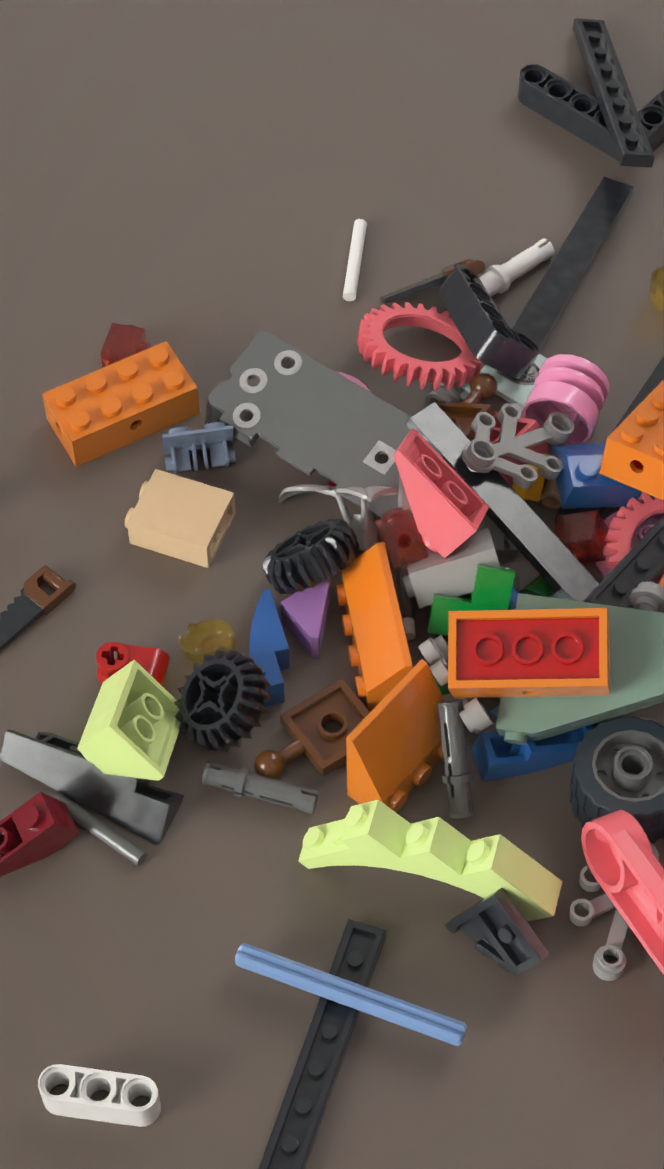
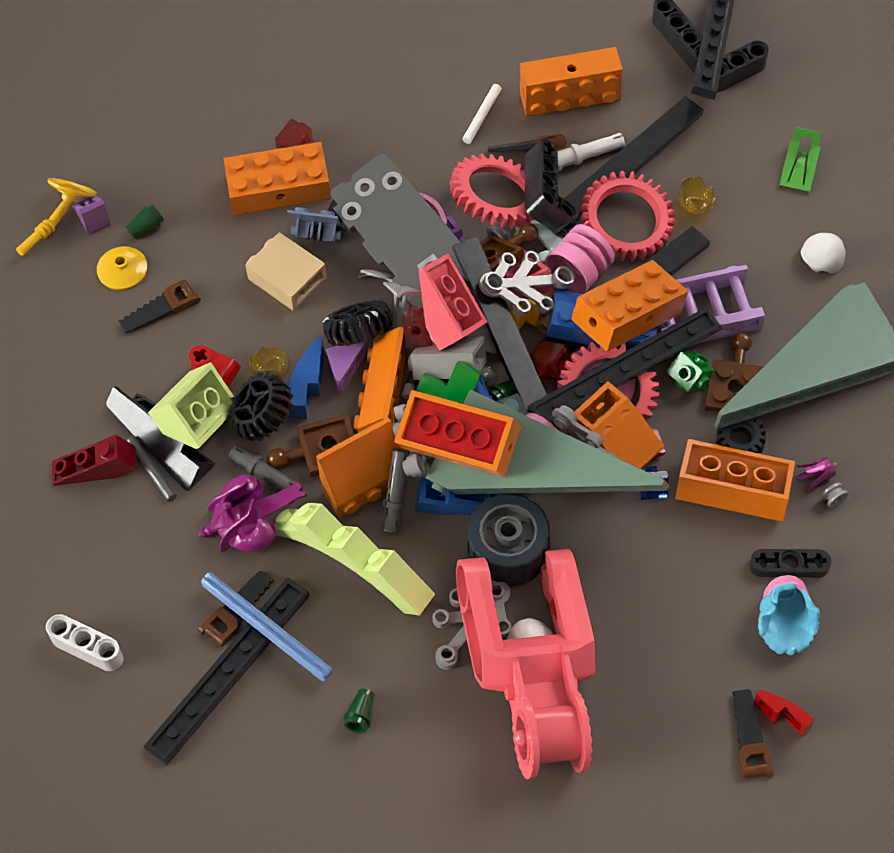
camera: 20 degrees right, 5 degrees up
(256, 856) = (241, 514): none -> magenta hair
(289, 998) = (250, 592): none -> piece
(457, 191) = (570, 81): none -> orange brick
(501, 933) = (380, 616): black wing -> none
(526, 1072) = (359, 713): none -> dark green cone
(572, 297) = (663, 213): none -> coral piece

